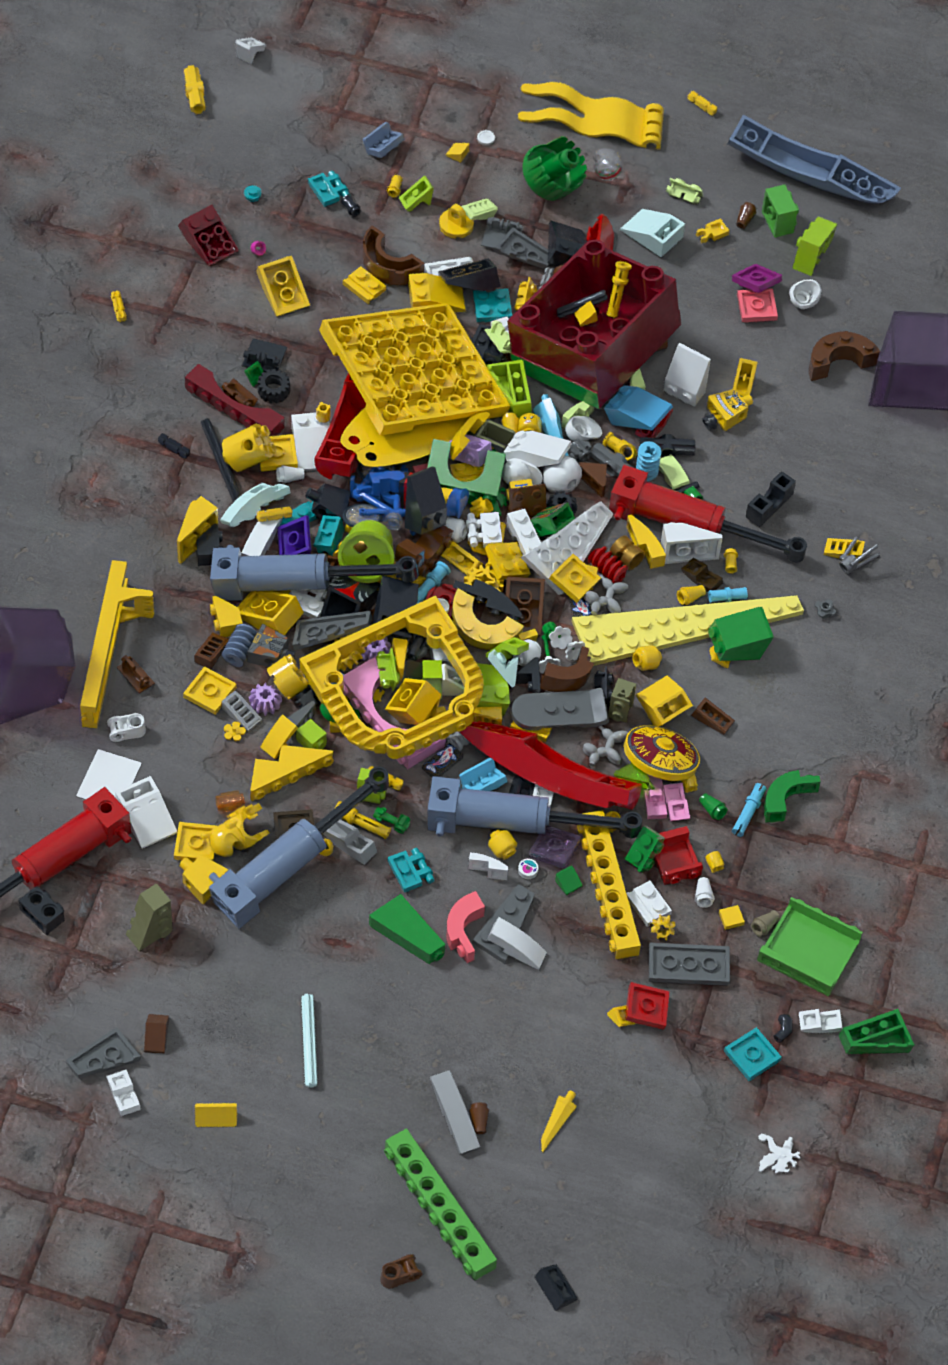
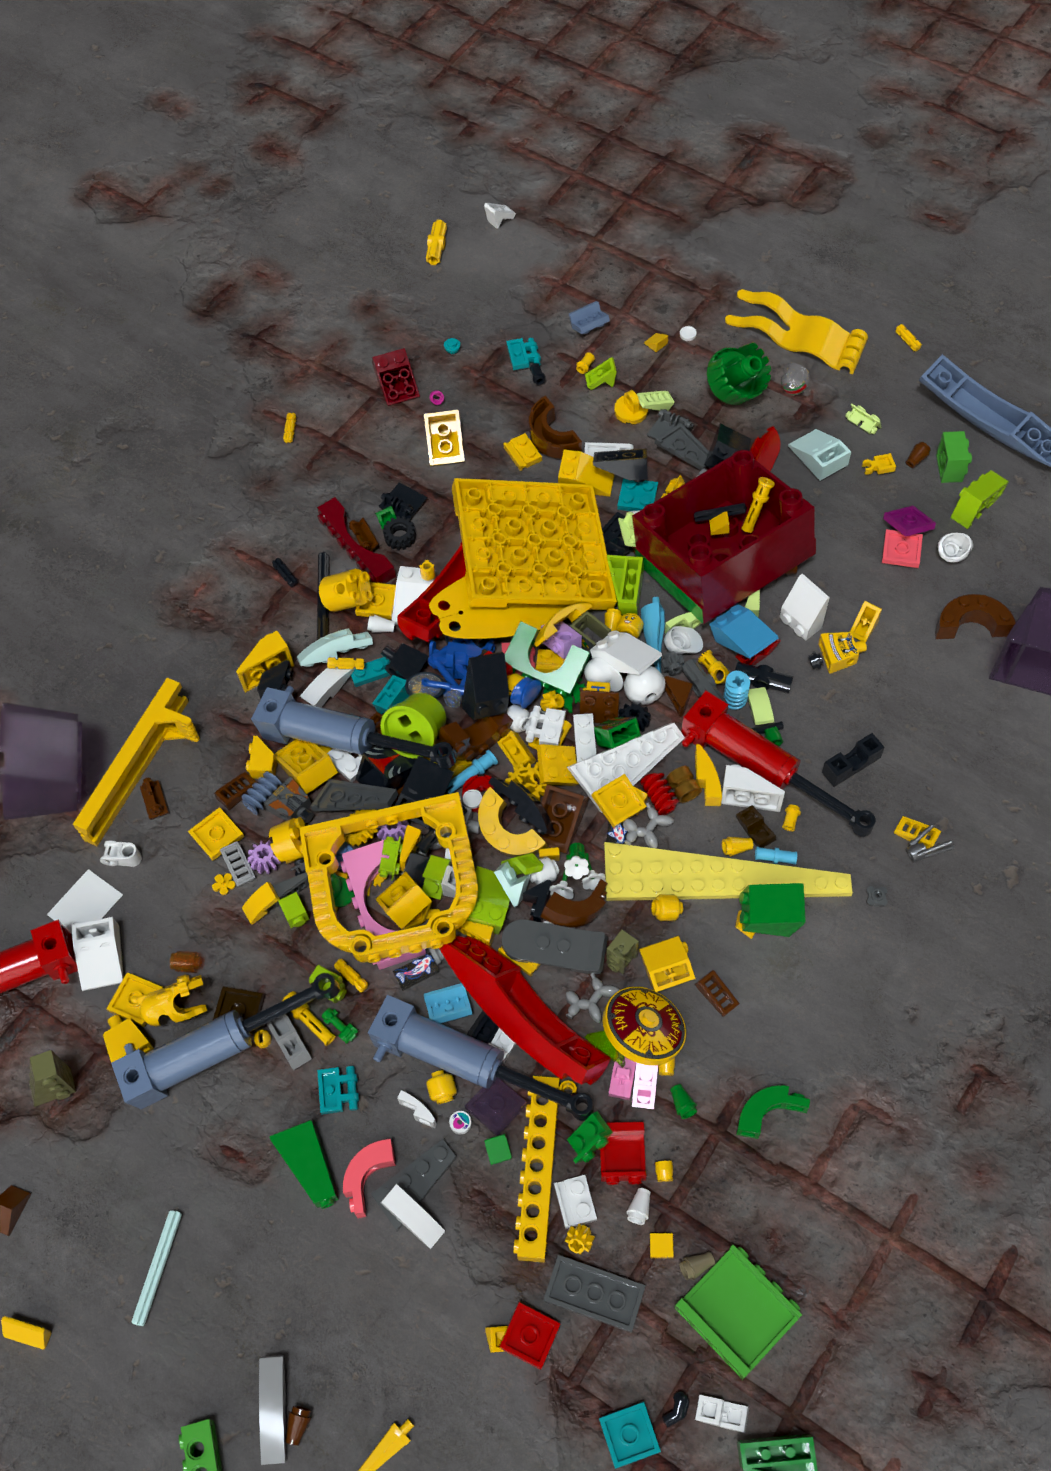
camera: 25 degrees right, 5 degrees up
(292, 765) = (262, 937): yellow slope -> none
(295, 537) = (357, 694): dark purple slope -> none
(605, 681) = (614, 922): black hinge -> none
(752, 803) = (727, 1109): medium azure pin -> none

